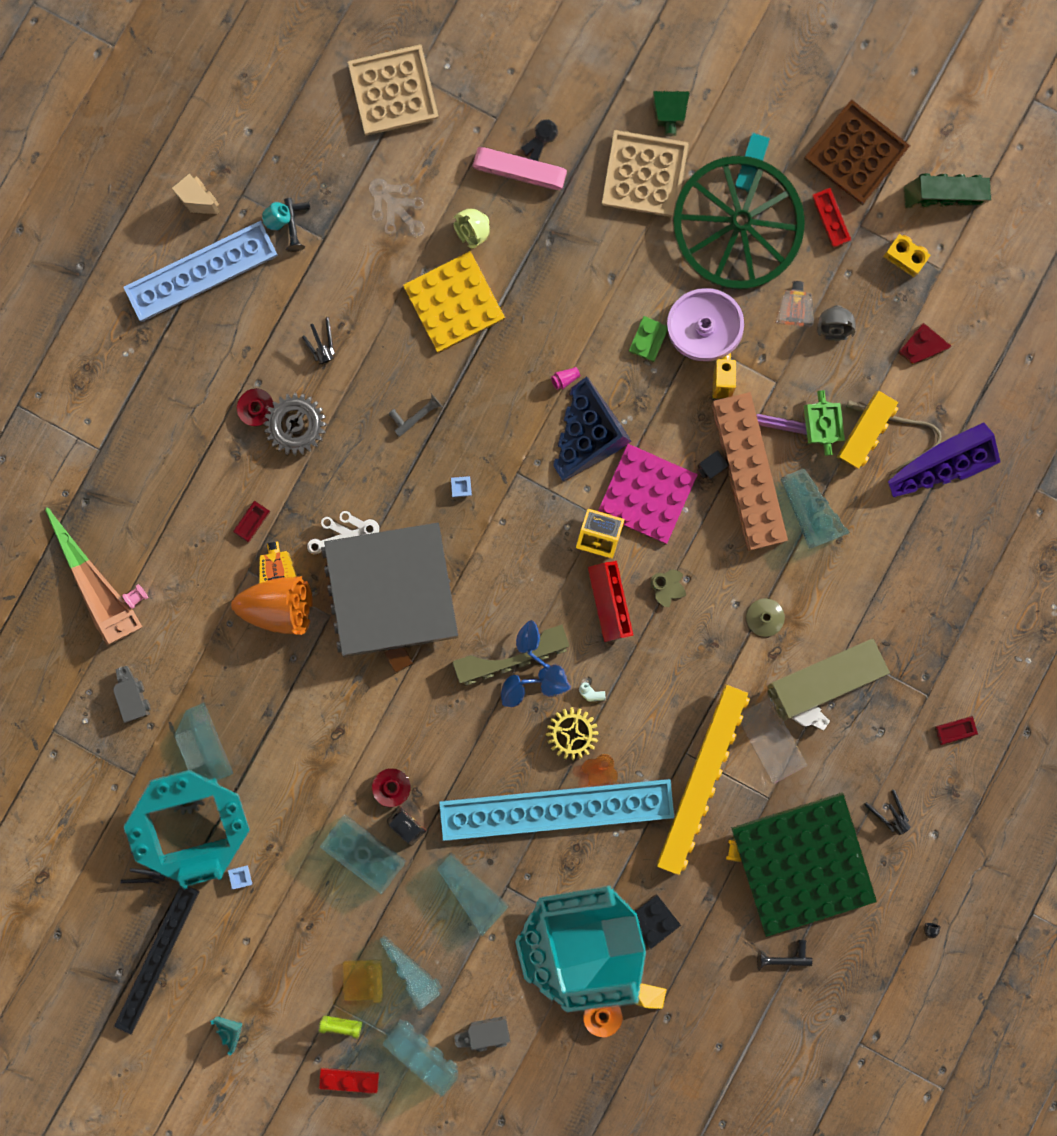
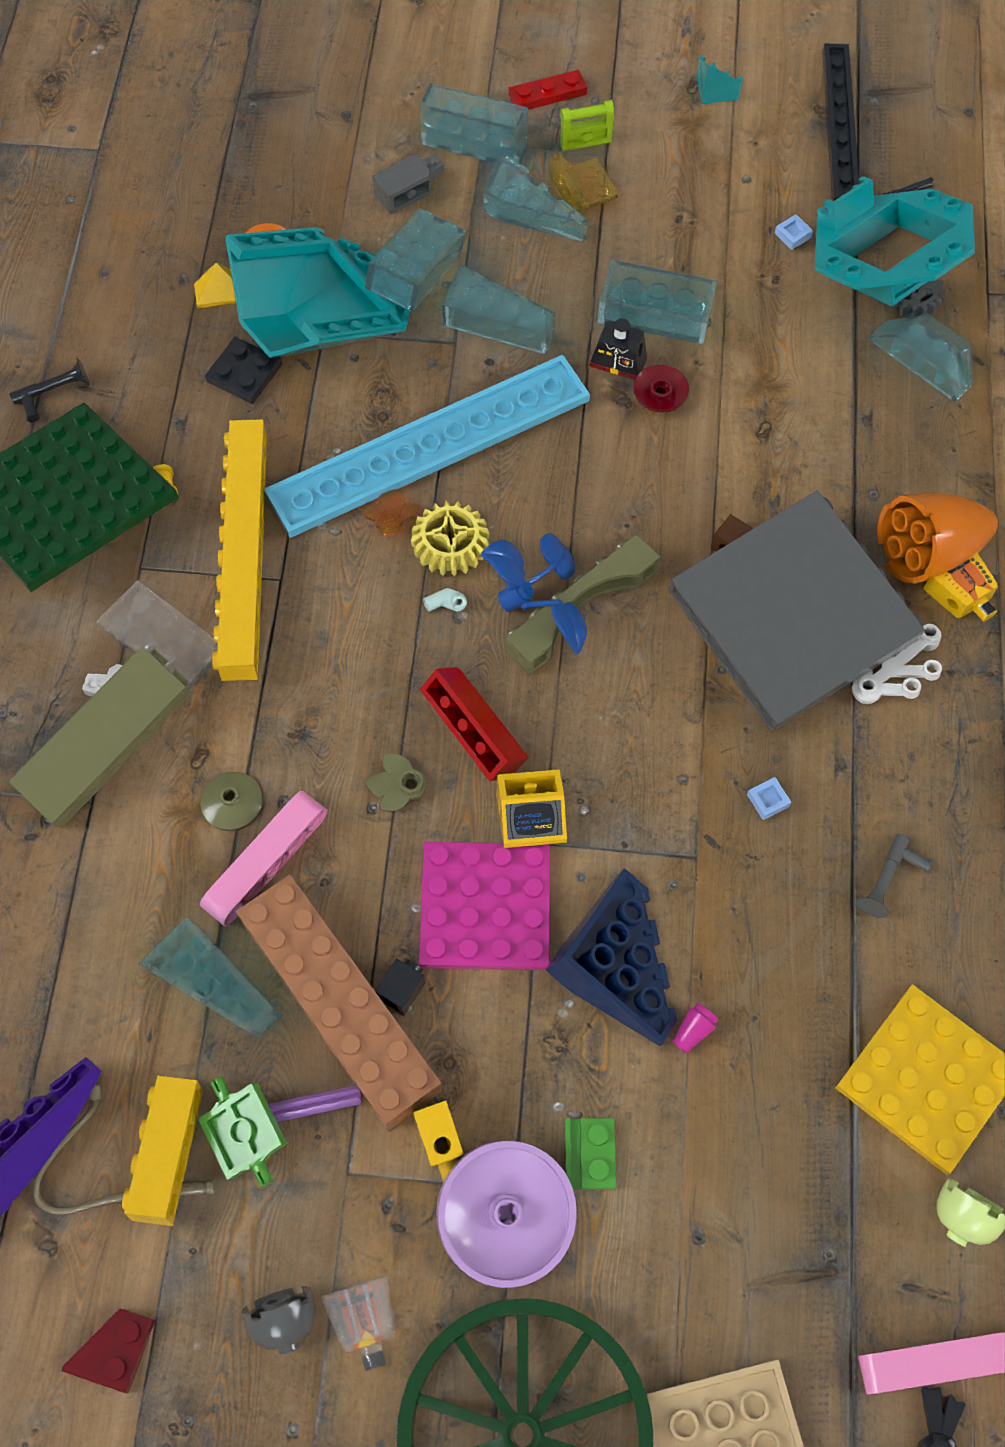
camera: 165 degrees right, 20 degrees down
(510, 952) = (415, 259): none -> clear light blue brick
(759, 571) = (263, 858): none -> bright pink beam

